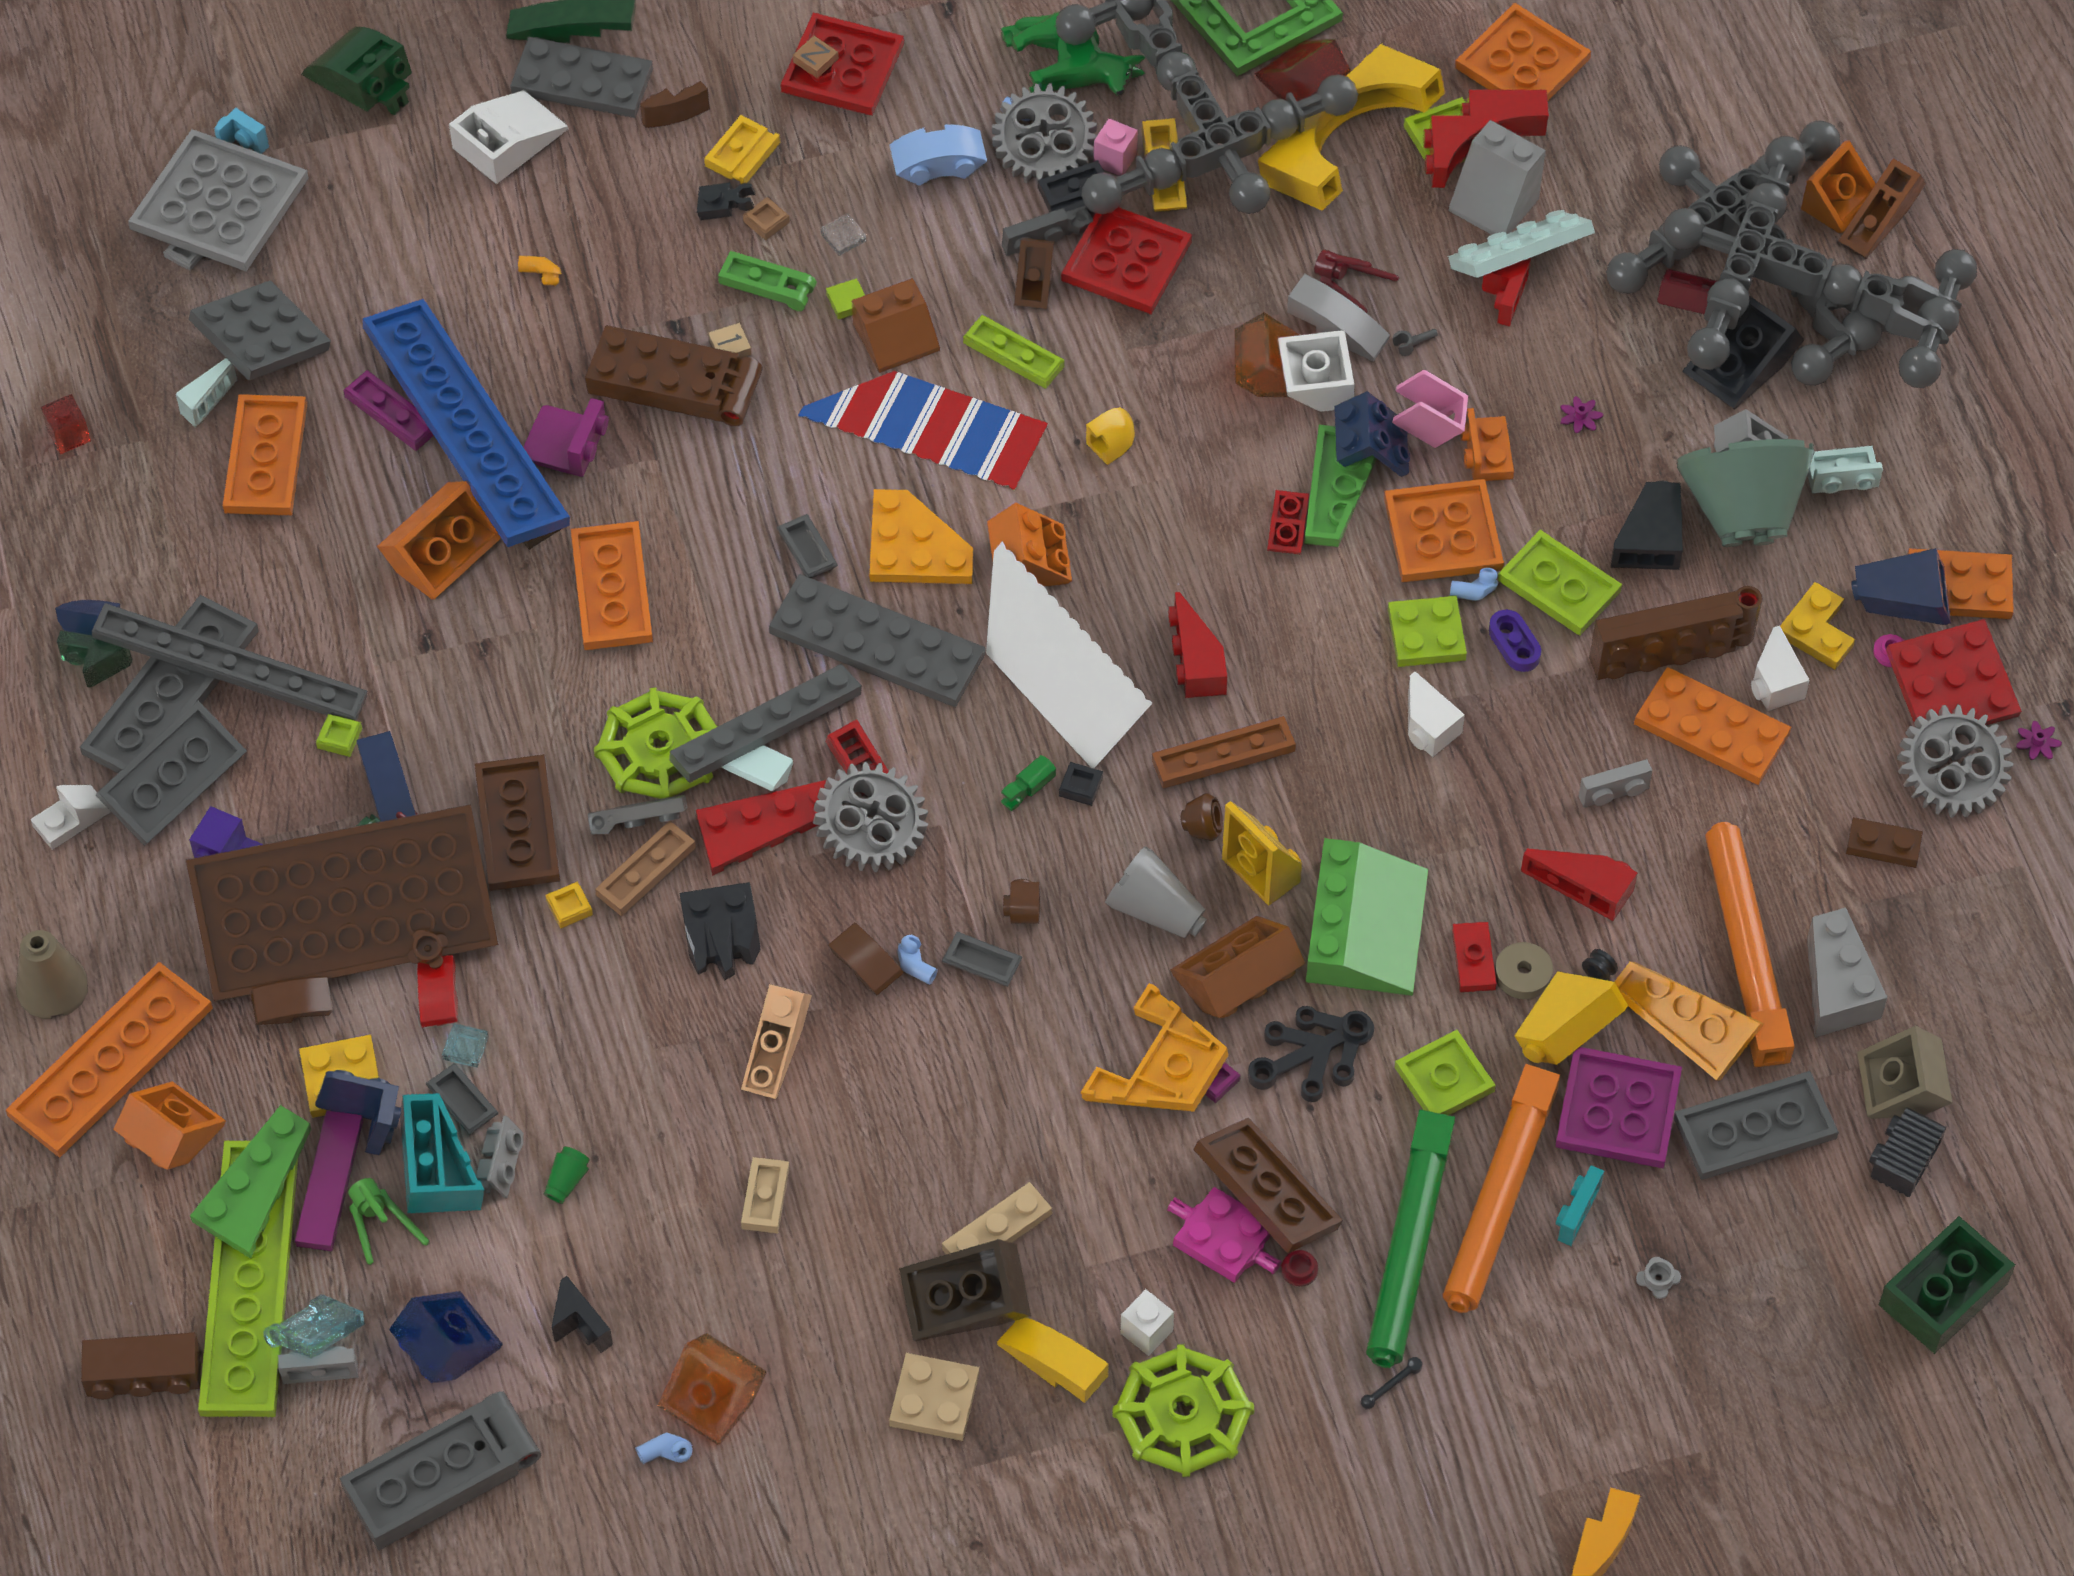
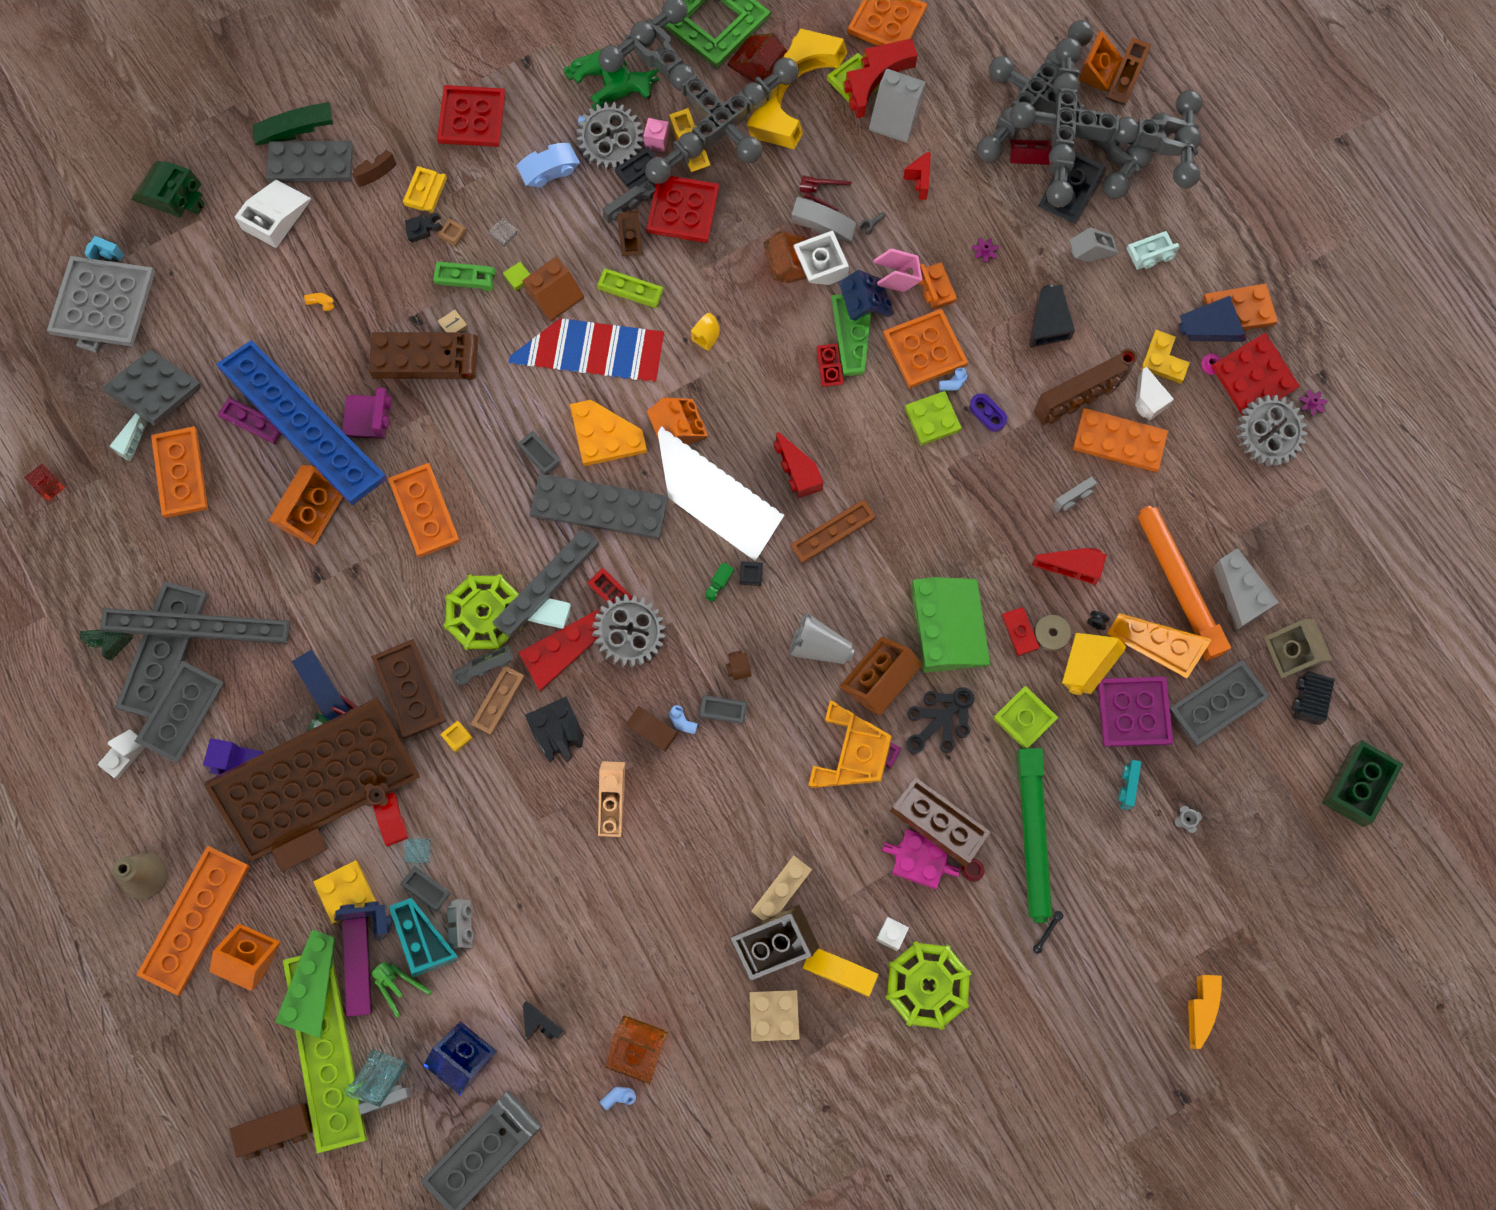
camera: 15 degrees left, 15 degrees up
(80, 615) = (91, 613): dark blue brick -> none
(339, 735) = (279, 655): lime tile -> none
(565, 1174) = (504, 925): green cone -> none
(765, 1195) = (633, 907): tan plate -> none
(815, 56) = (453, 116): medium nougat tile -> none
(1203, 817) = (833, 580): reddish brown cone -> none
(1258, 855) = (876, 599): yellow slope -> none
(1431, 717) = (951, 476): white slope -> none
(1501, 1188) = (1082, 728): orange brick -> none
(1525, 242) = (921, 145): light aqua plate -> none
(1559, 582) = (1004, 366): lime plate -> none
(1749, 487) = (1106, 282): sand green cone -> none
(1884, 842) = (1242, 493): reddish brown plate -> none

